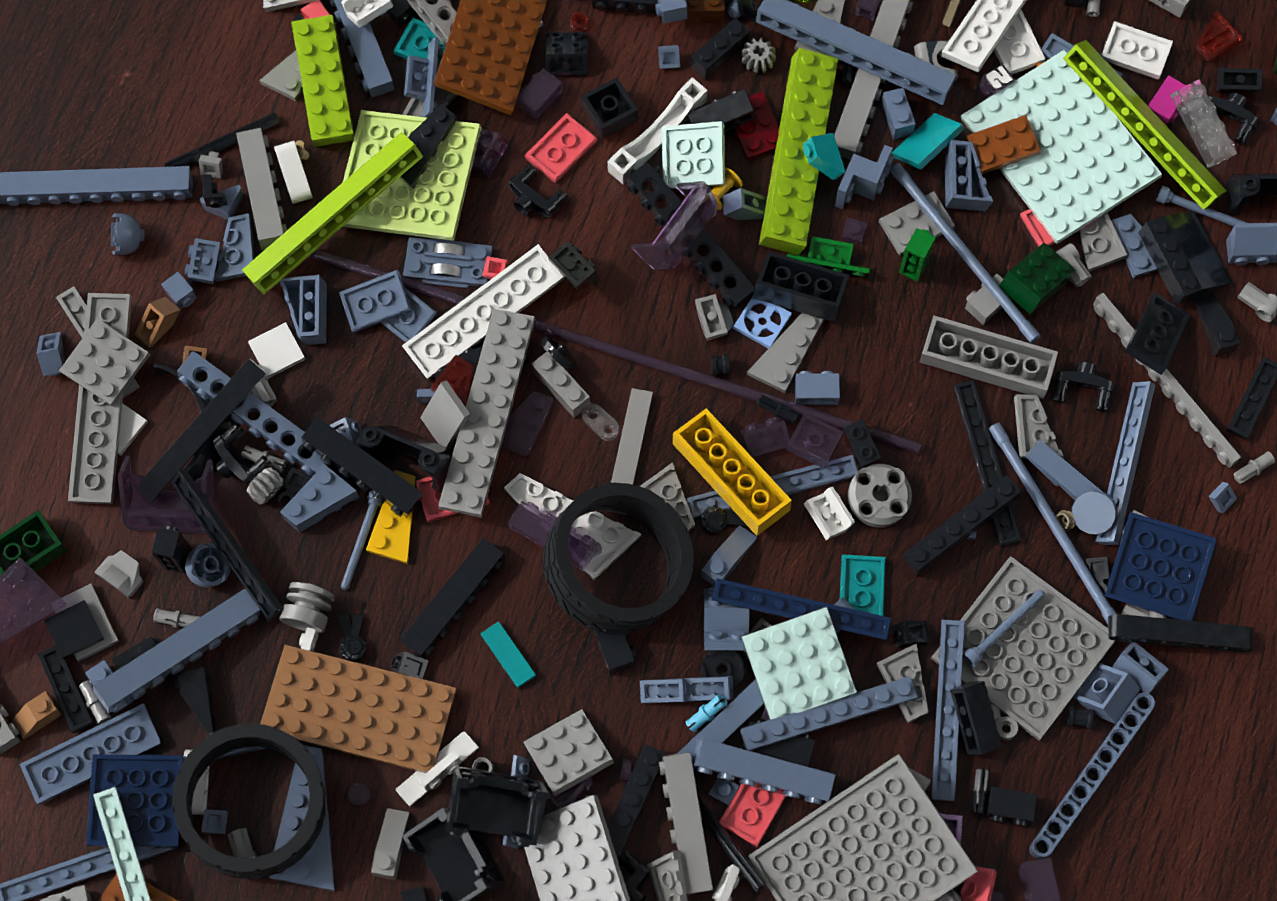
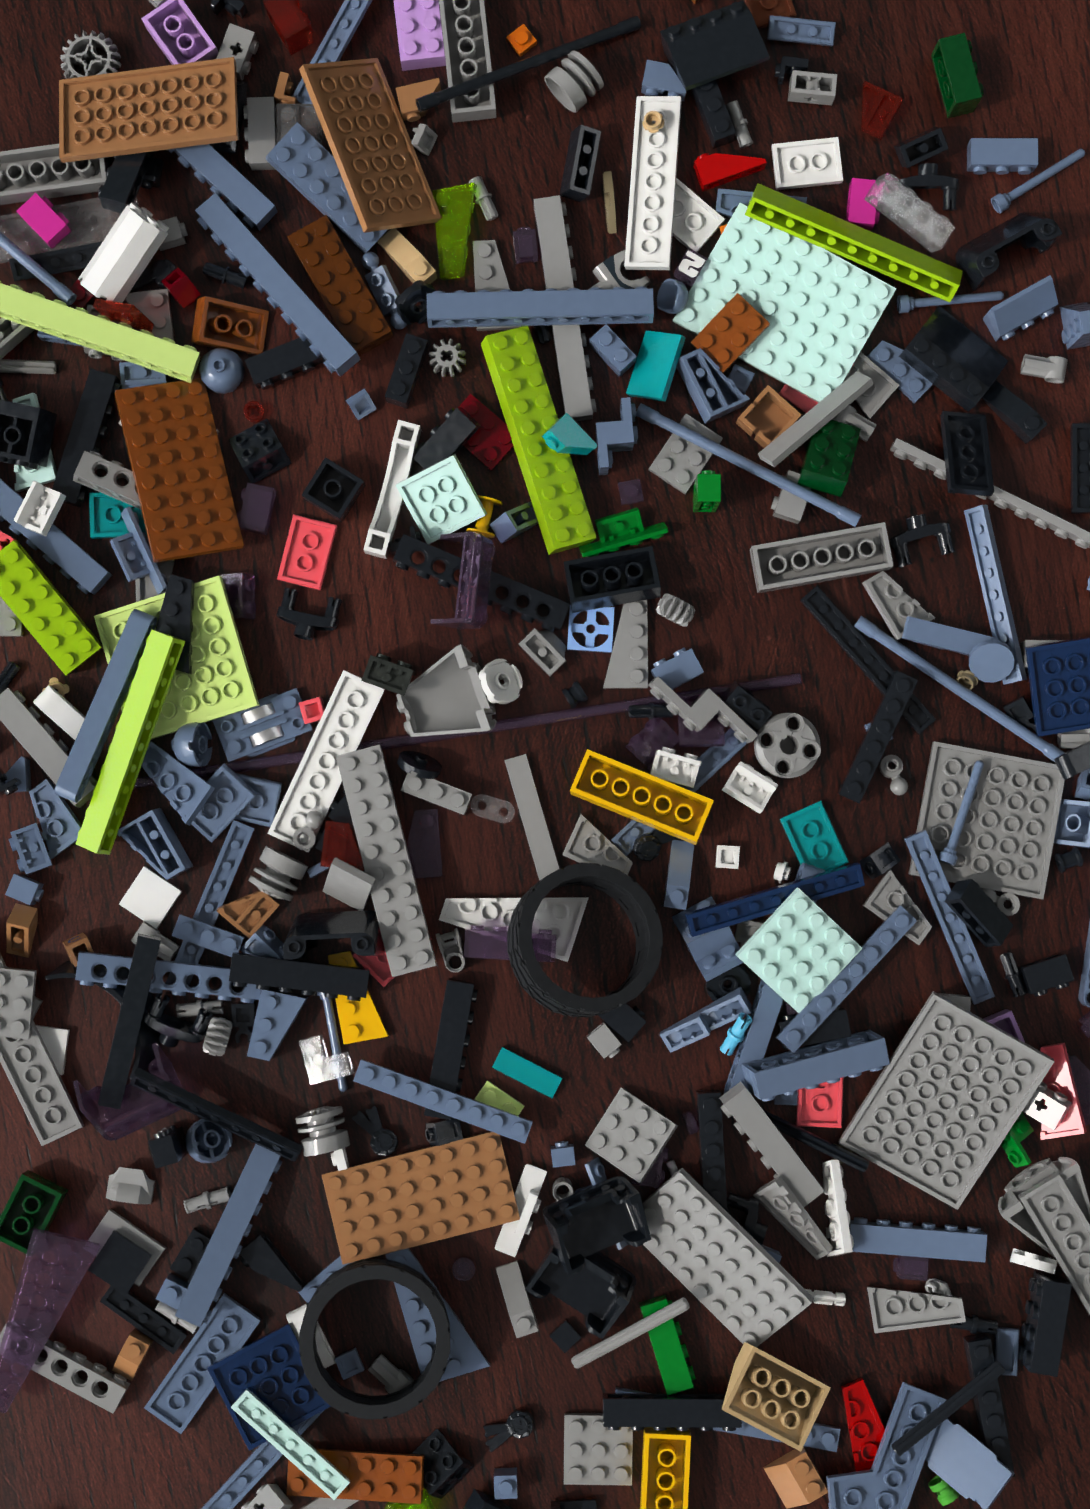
camera: 30 degrees left, 15 degrees up
(303, 399) = (207, 935): none -> sand blue plate
(324, 178) = (105, 706): none -> sand blue beam
(329, 374) = (216, 890): none -> sand blue plate
(337, 557) = (321, 1066): none -> clear plate
(350, 400) = (249, 911): none -> medium nougat wing
(351, 265) = (177, 782): none -> sand blue wing
(381, 245) = (191, 744): none -> sand blue cylinder
(394, 378) = (278, 873): none -> light grey wheel
(423, 635) = (443, 1101): none -> sand blue plate
(445, 352) = (313, 820): none -> light grey plate
(470, 668) = (498, 1098): none -> yellowish green plate
(499, 739) = (562, 1154): none -> sand blue plate
(500, 515) = (451, 948): none -> light grey piece
(589, 661) = (604, 1041): none -> light grey brick
(613, 310) = (447, 698): none -> light grey cone
(654, 325) = (490, 681): none -> white plate
(775, 461) = (675, 767): none -> white bracket
(779, 562) = (727, 856): none -> white plate
(821, 426) = (702, 710): none -> light grey bracket
(821, 596) = (782, 872): none -> white plate
(842, 337) = (675, 610): none -> light grey gear
(960, 578) = (898, 785): none -> light grey plate
(970, 96) = (672, 296): none -> sand blue hair
(995, 187) = (741, 378): none -> sand blue tile
(1003, 229) = (769, 418): none -> medium nougat piece
(1040, 241) = (815, 419): none -> light grey tile
(1066, 22) = (724, 168): none -> red slope

